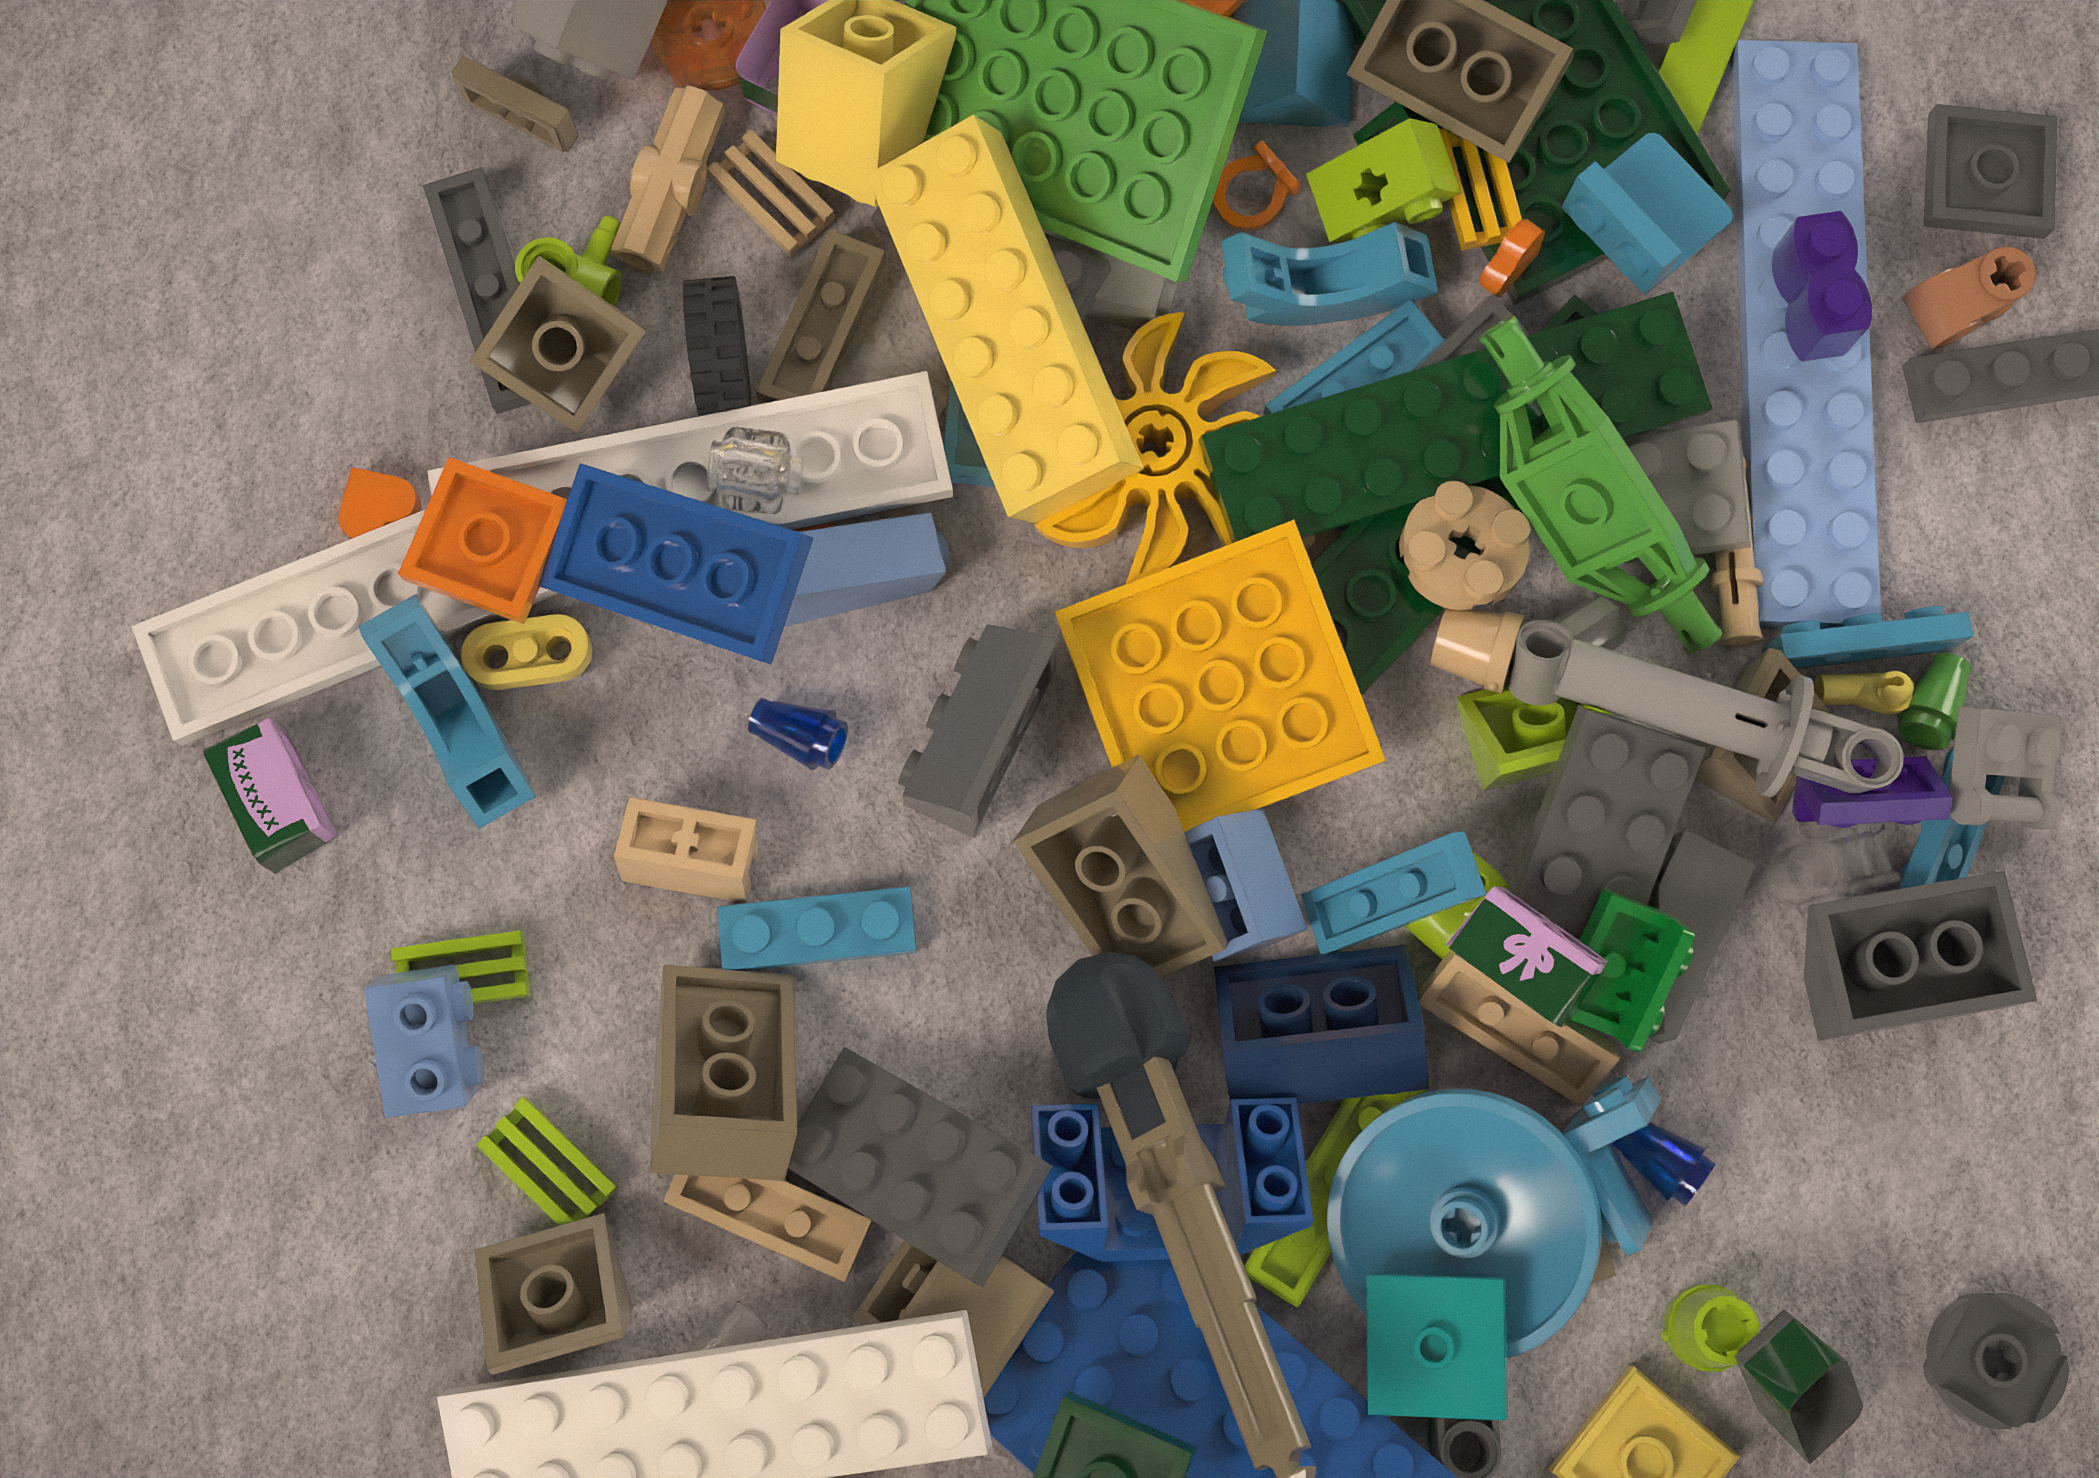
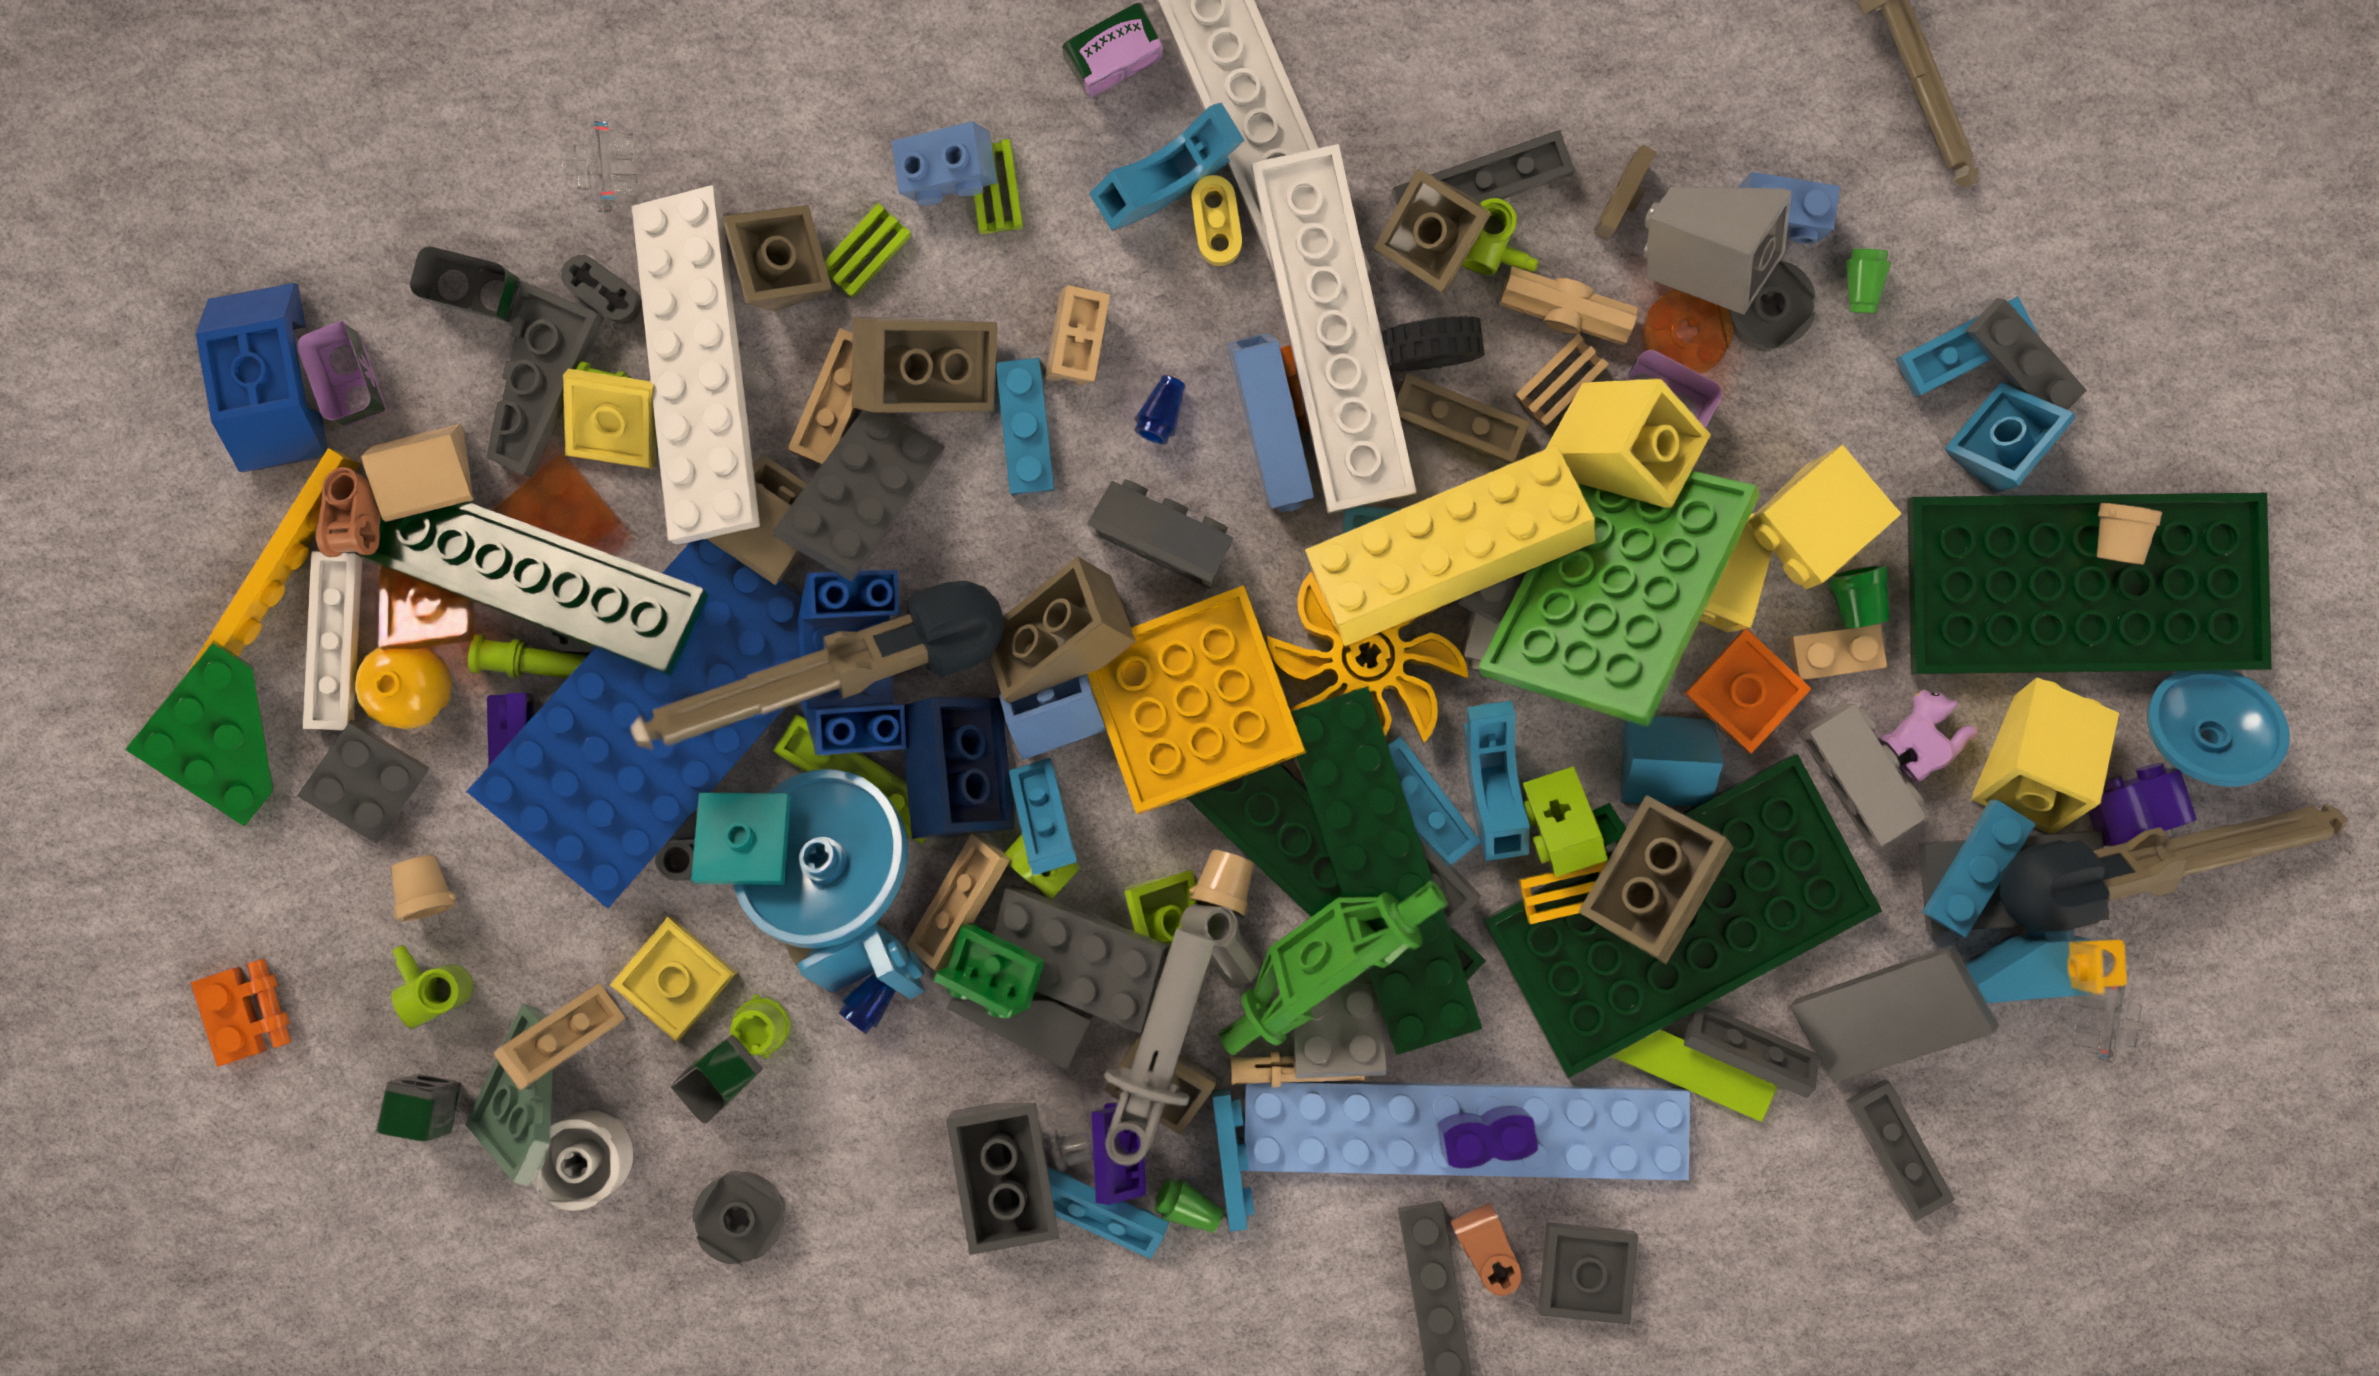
camera: 90 degrees right, 10 degrees up
(375, 501) = (1324, 110): orange tile -> none
(484, 540) = (1283, 186): orange plate -> none
(676, 563) = (1262, 317): blue plate -> none
(753, 470) = (1334, 370): clear head -> none
(1262, 160) = (1572, 753): orange piece -> none
(1473, 513) = (1300, 898): tan plate -> none
(1512, 257) = (1507, 913): orange tile -> none
(1528, 955) = (995, 904): dark green piece -> none
(1647, 211) = (1546, 1014): dark azure bracket -> none
(1879, 692) = (1196, 1160): light yellow arm -> none
(2005, 746) = (1150, 1243): light grey plate -> none

